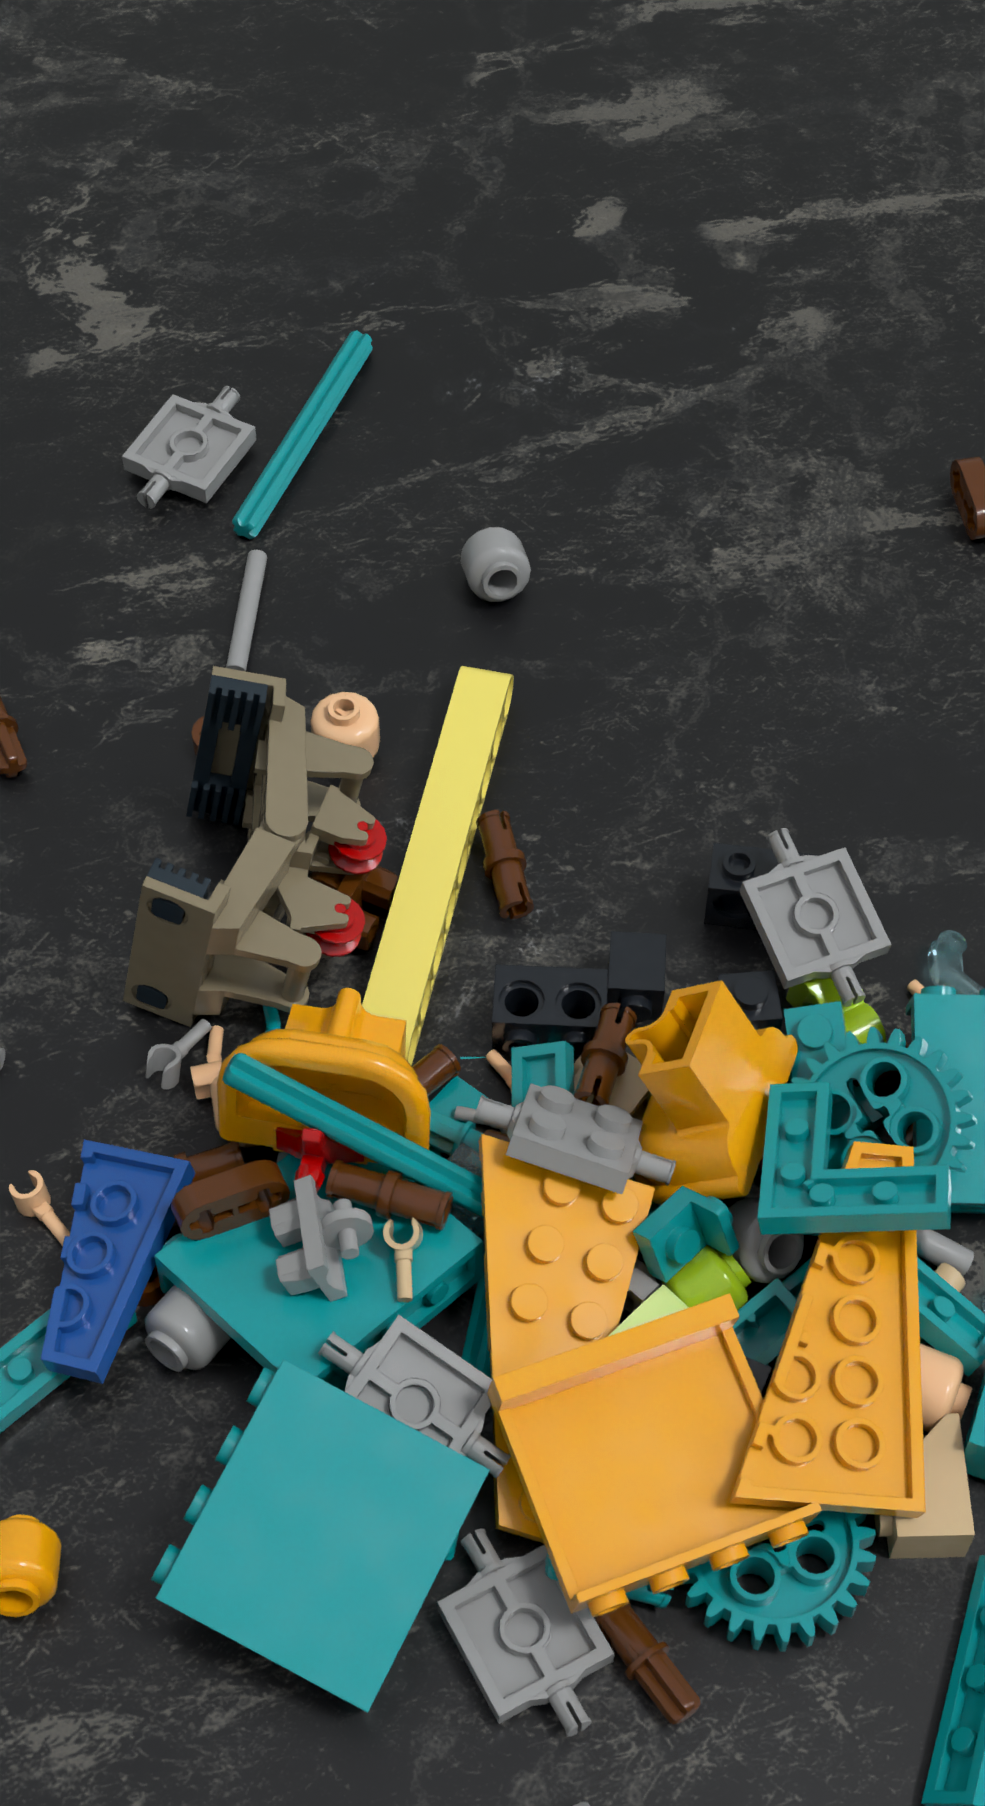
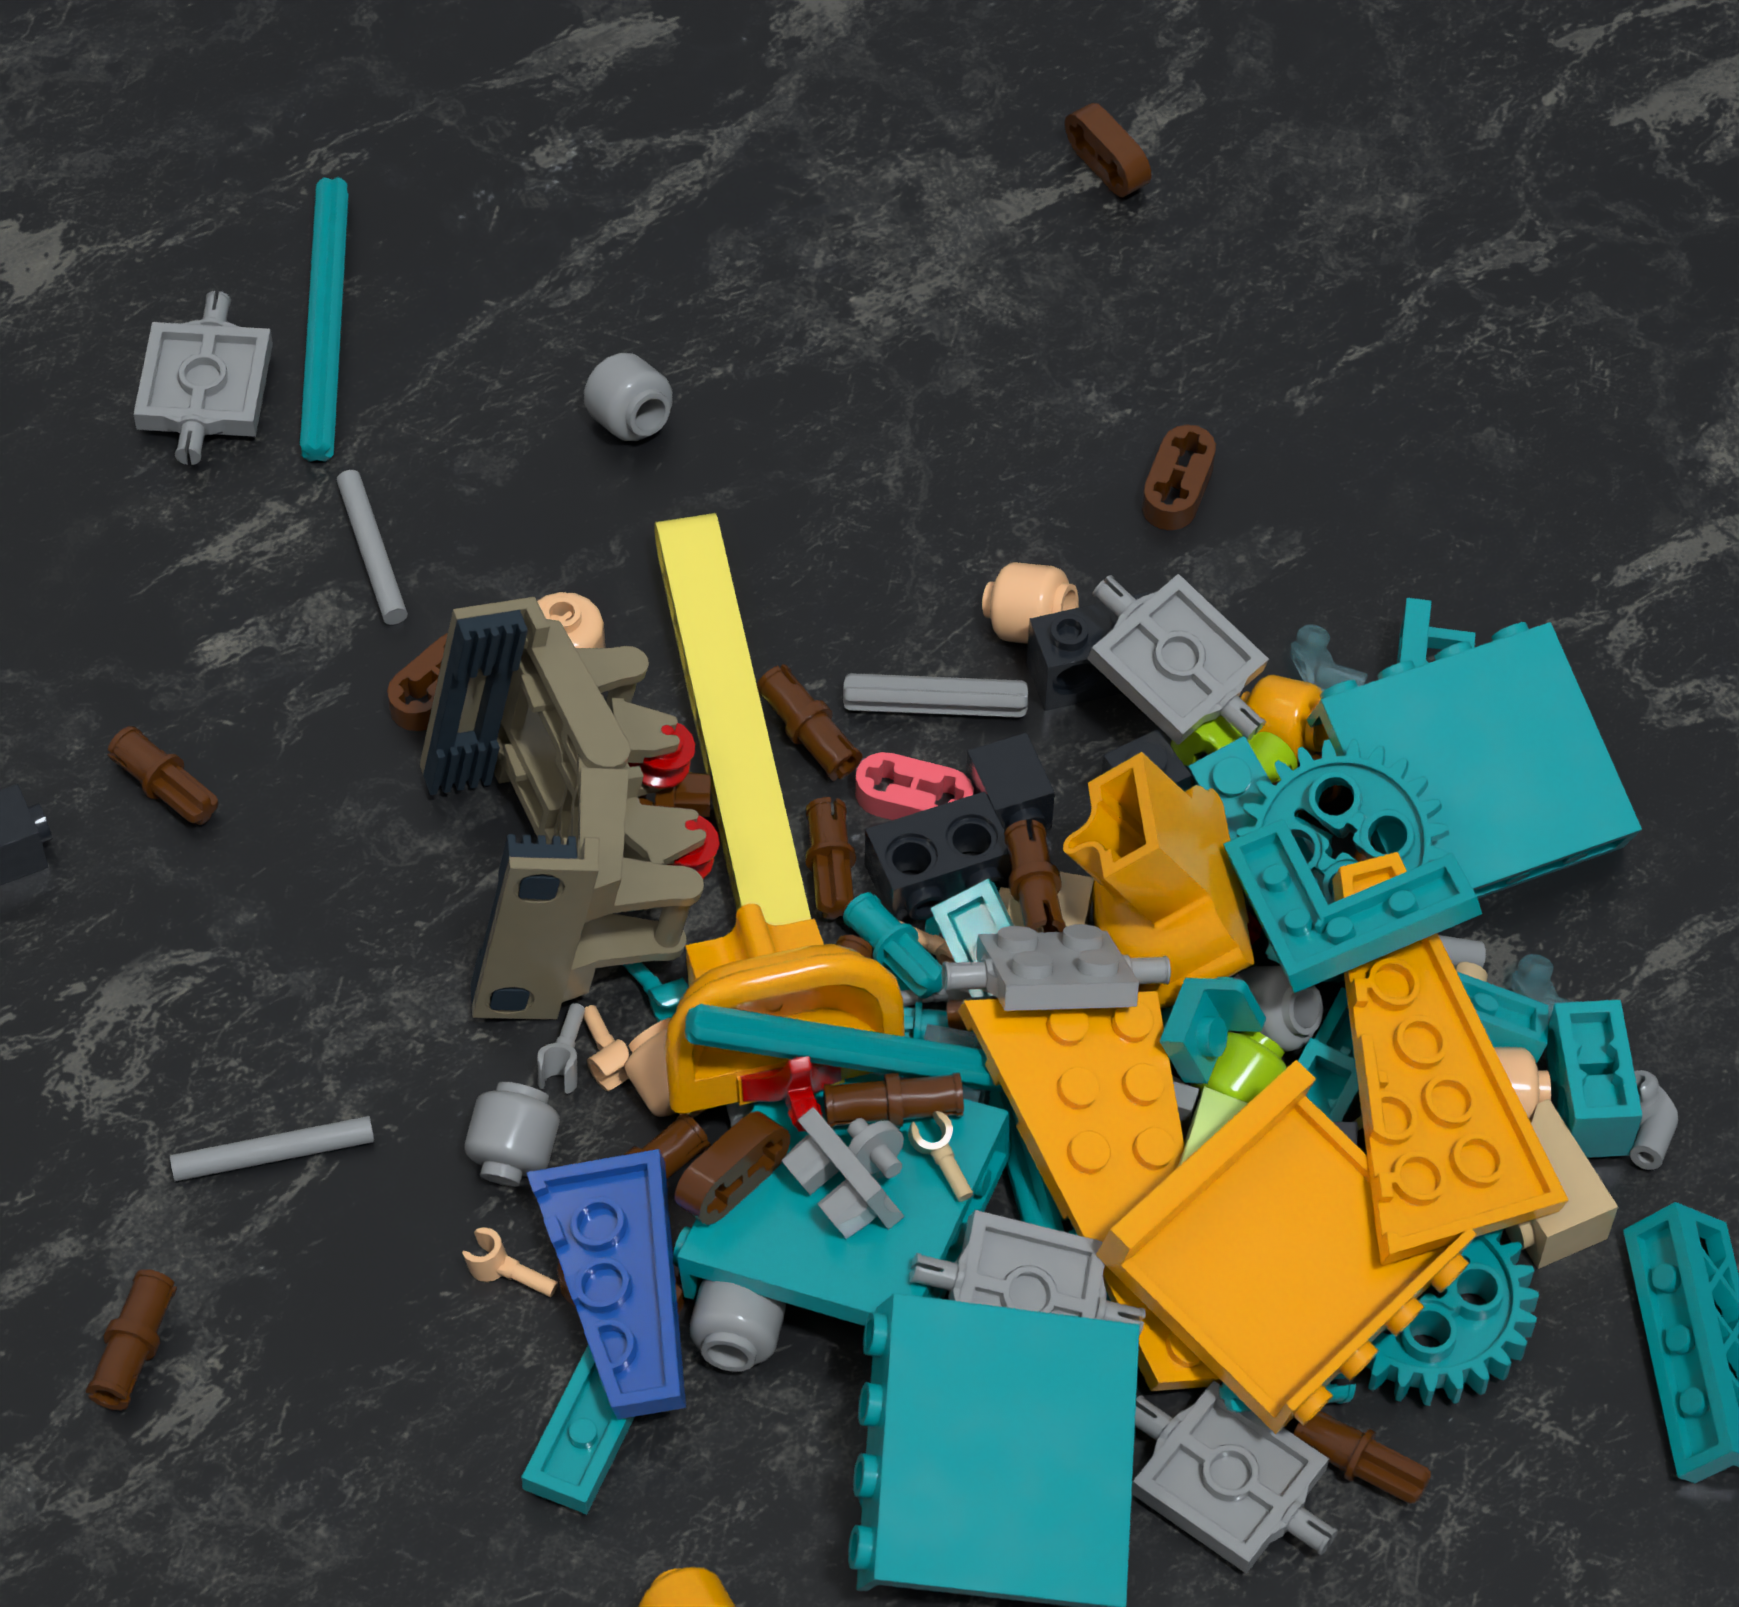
camera: 25 degrees left, 0 degrees up
(97, 1103) = (511, 1132): none -> light grey head
(465, 978) = (830, 856): none -> reddish brown axle
(476, 1063) = (894, 944): none -> teal axle
(565, 944) = (914, 785): none -> coral beam
(619, 879) = (935, 695): none -> light grey axle
(727, 822) = (1026, 593): none -> light nougat head
(889, 990) = (1285, 707): none -> light orange head
(914, 781) = (1168, 473): none -> reddish brown beam

